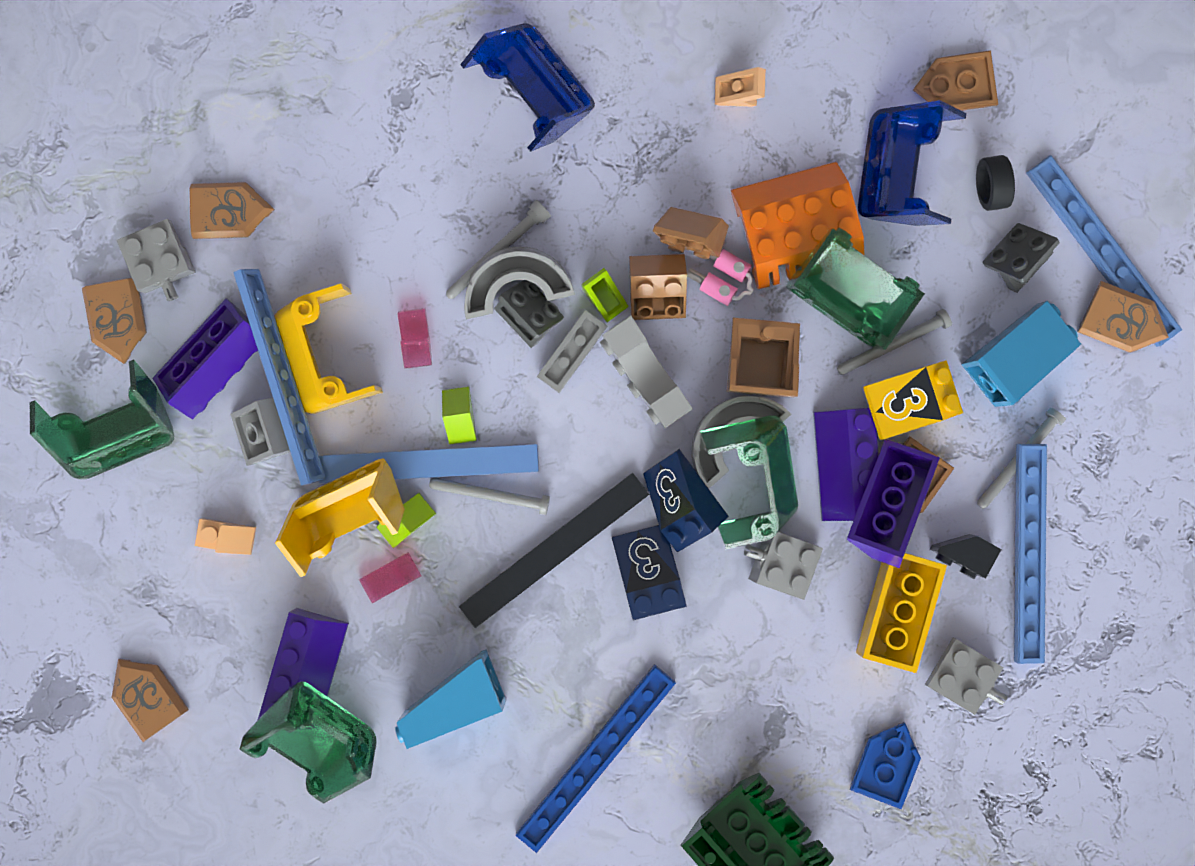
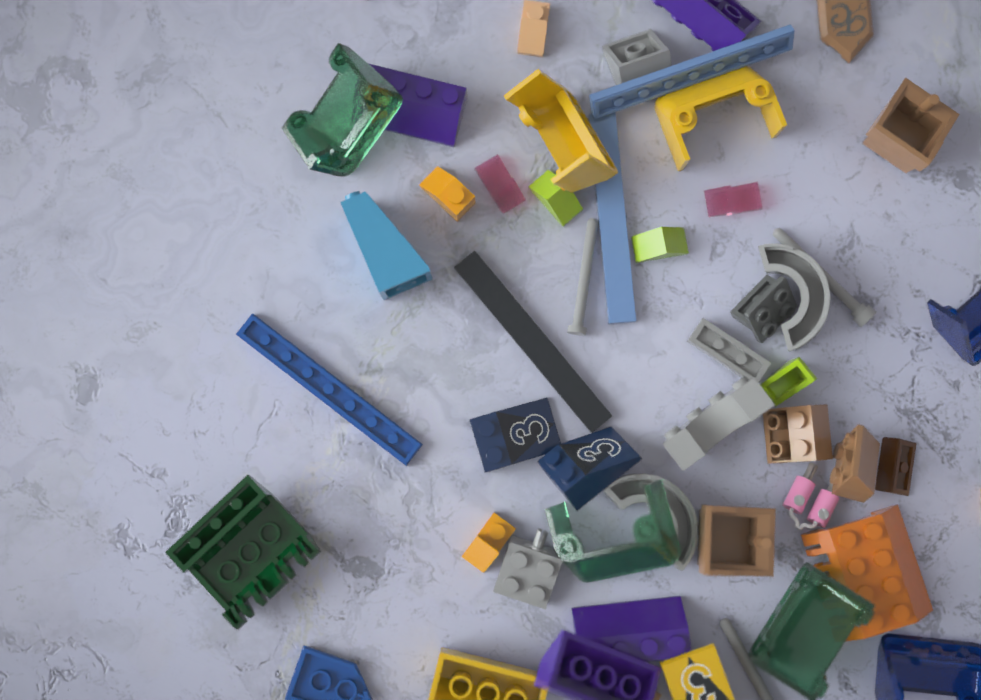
camera: 90 degrees right, 5 degrees down
(346, 154) = (910, 128): none -> medium nougat piece
(398, 631) = (448, 193): none -> light orange slope
(693, 189) = (895, 466): none -> reddish brown slope
(754, 601) = (488, 542): none -> light orange slope

